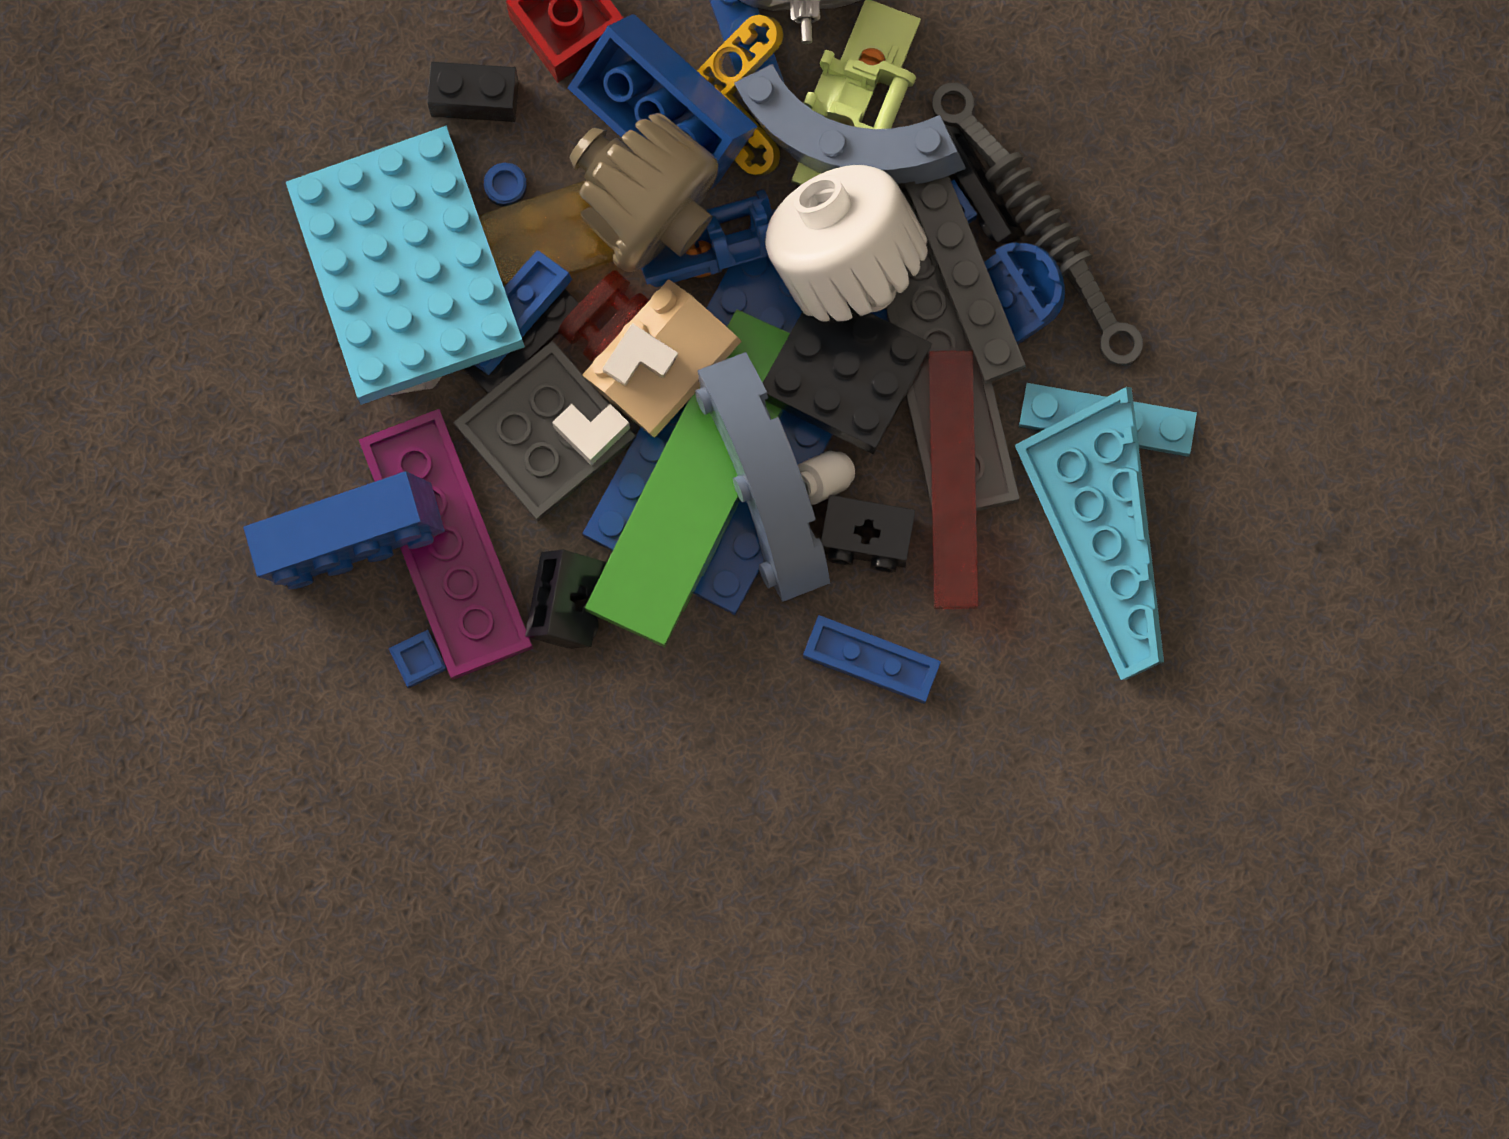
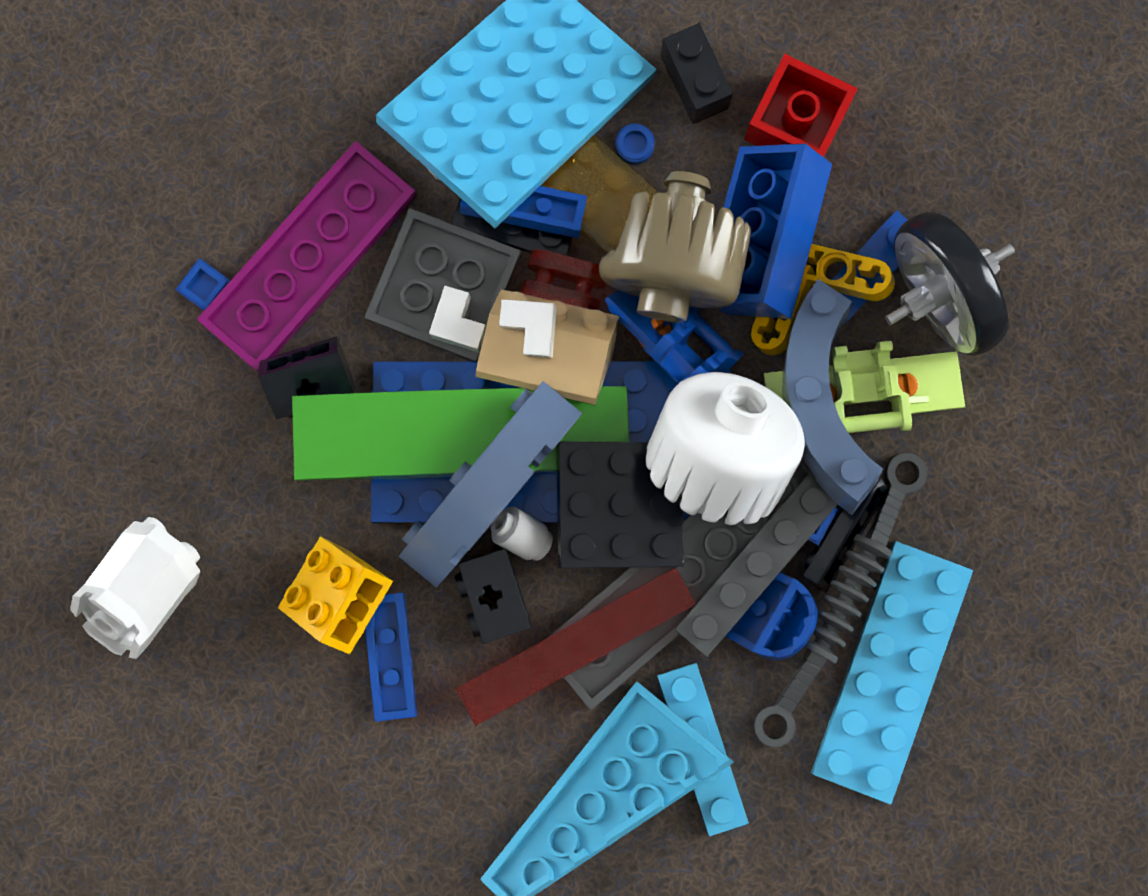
camera: 65 degrees right, 5 degrees up
(345, 530) = (261, 167): blue brick -> none
(683, 856) = (136, 587): none -> white brick
(788, 672) = (334, 595): none -> yellow brick
(1128, 214) = (892, 672): none -> medium azure plate

